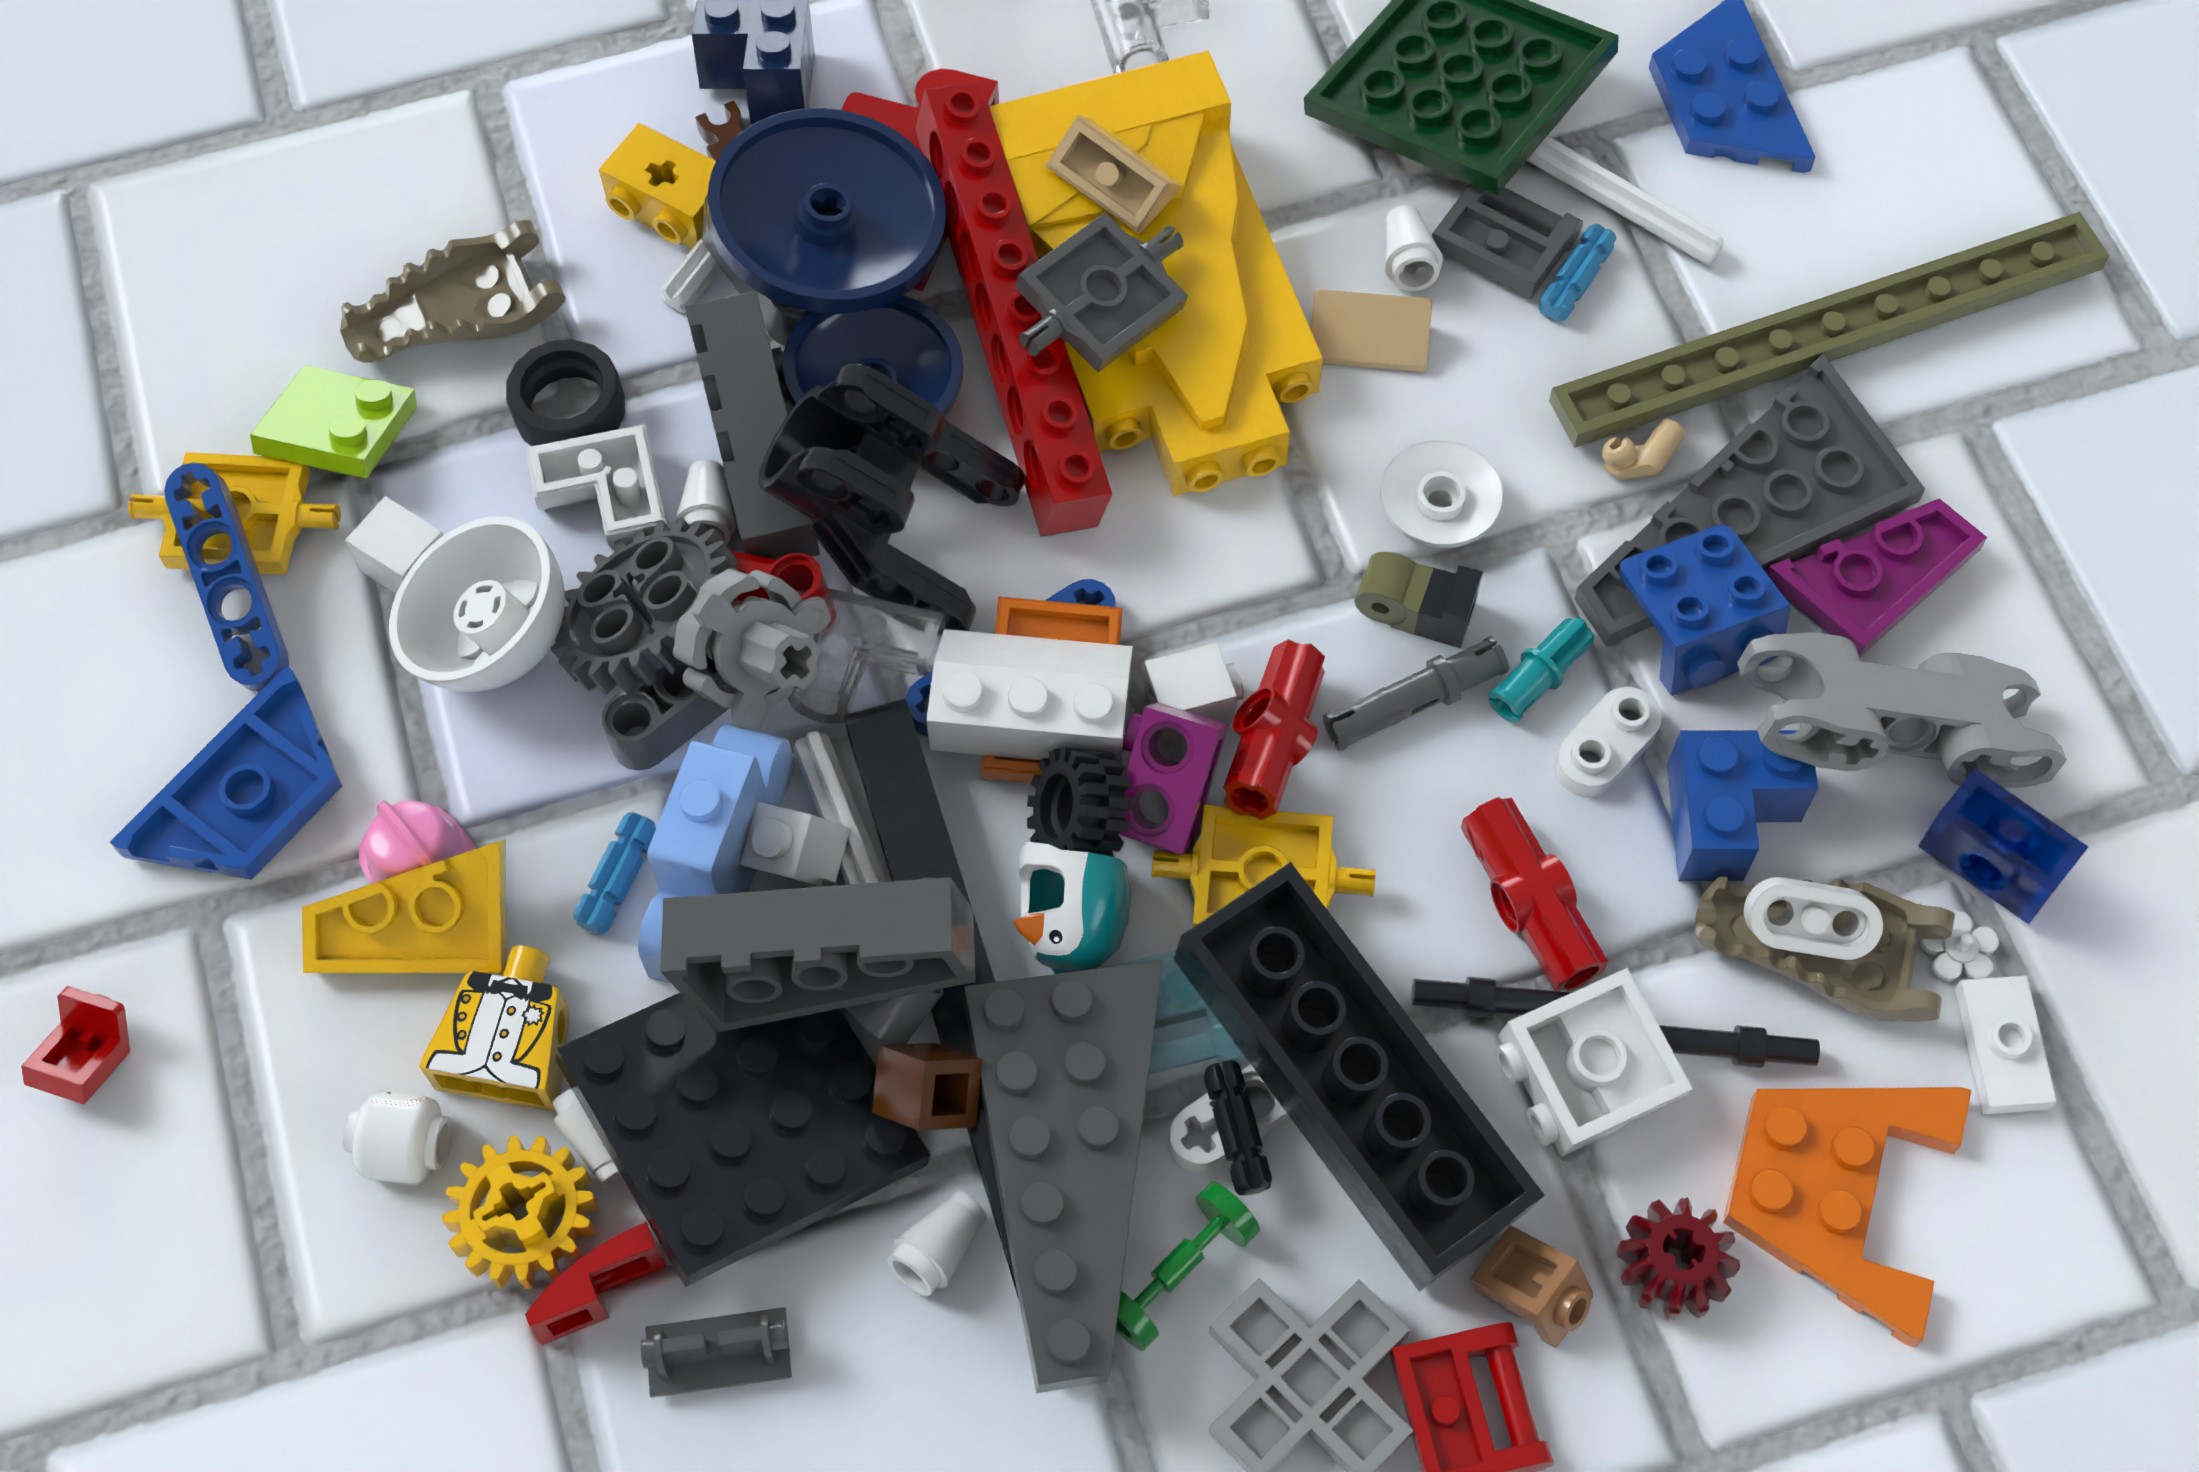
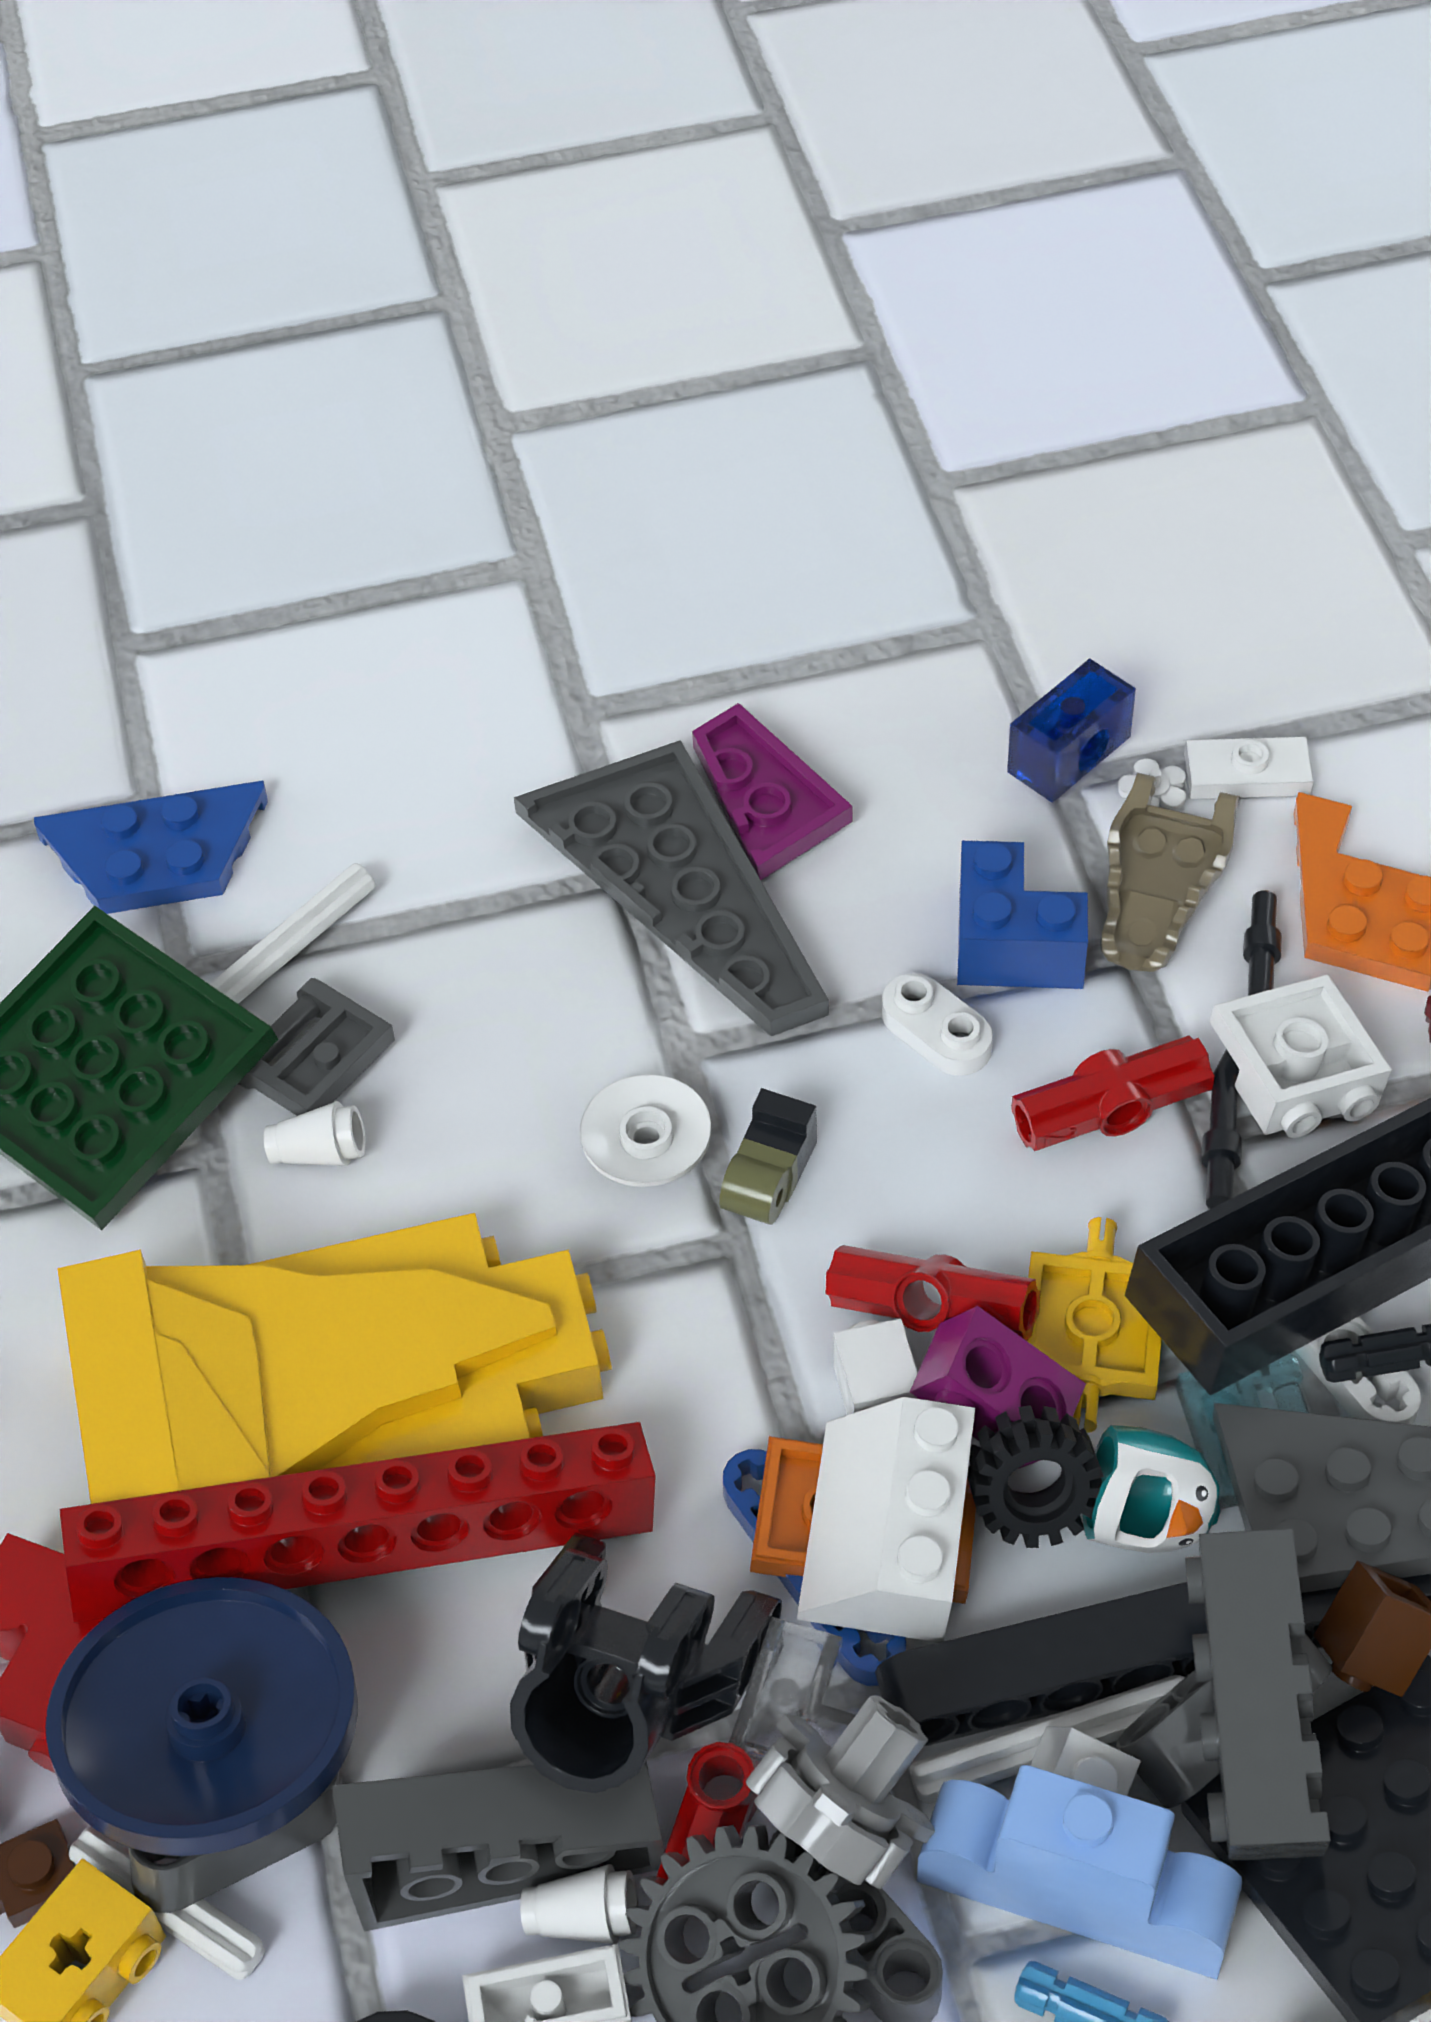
camera: 85 degrees left, 10 degrees down
(896, 339) = (430, 1651): dark blue dish -> none
(1101, 291) = (395, 1392): dark grey plate -> none
(1112, 174) = (224, 1374): tan slope -> none
(1372, 329) = (420, 1176): tan slope -> none
(1437, 683) = (870, 1154): dark grey pin -> none
(1541, 669) = (856, 1067): teal axle -> none
(1577, 272) = (372, 993): dark azure axle -> none
(1633, 461) = (610, 956): tan arm -> none
(1705, 603) = (798, 915): blue bracket -> none
(1809, 918) = (1153, 866): white plate -> none
(1826, 326) = (483, 808): olive plate -> none
(1863, 710) = (943, 791): light grey piece -> none

